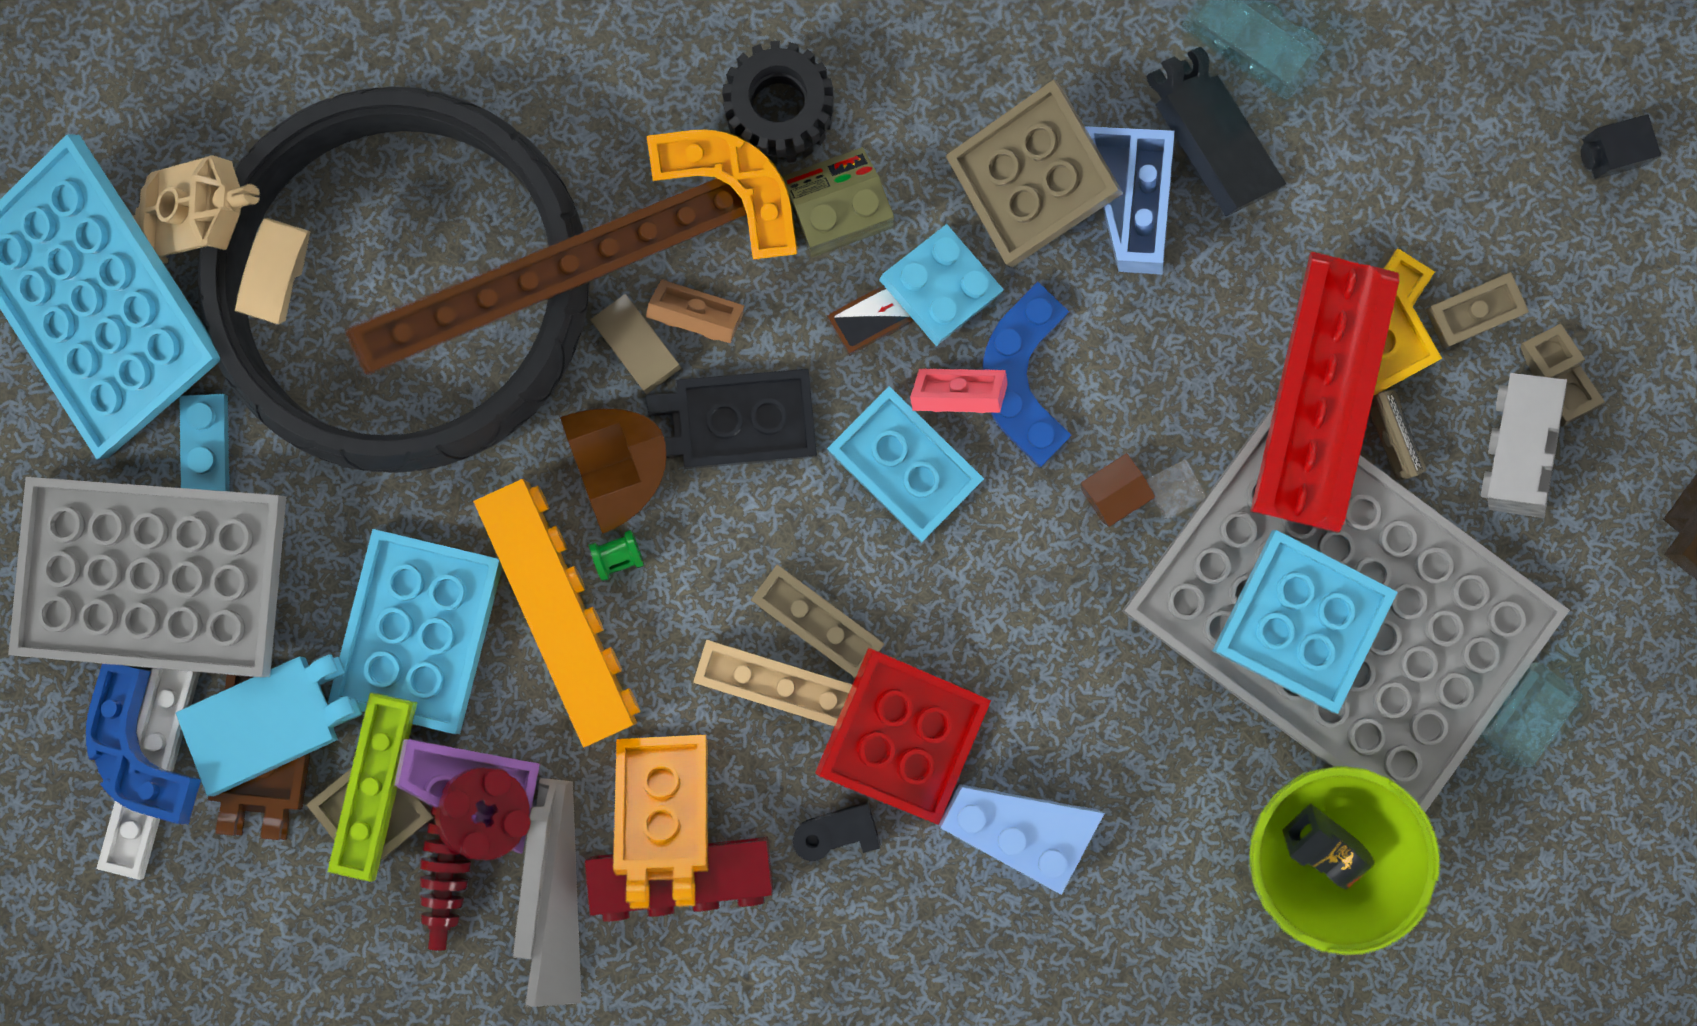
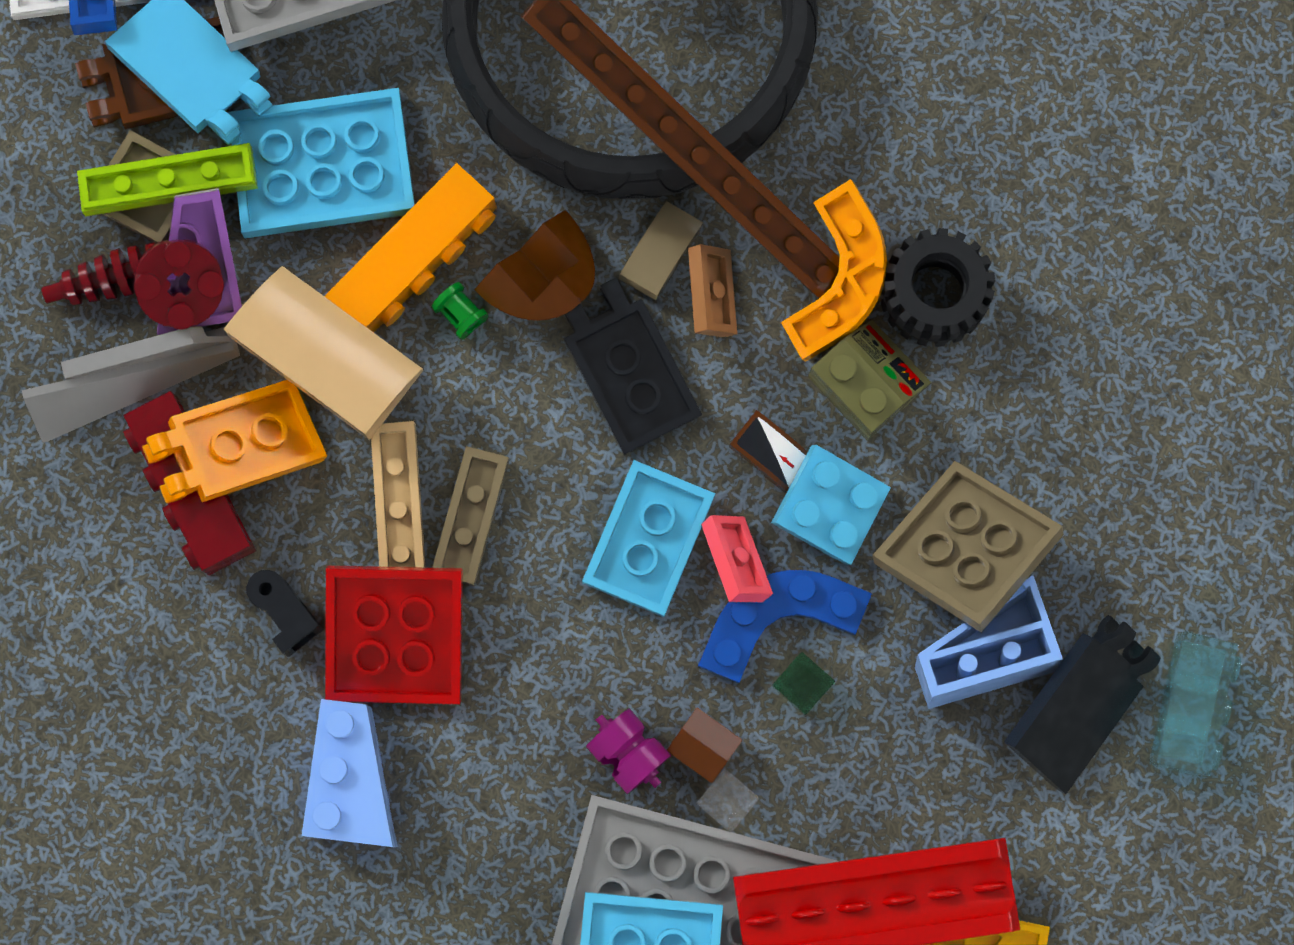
camera: 70 degrees right, 5 degrees down
(607, 698) = (323, 351): none -> tan slope
(1095, 377) = (803, 683): none -> clear green plate
(1105, 558) = (628, 751): none -> magenta wheel

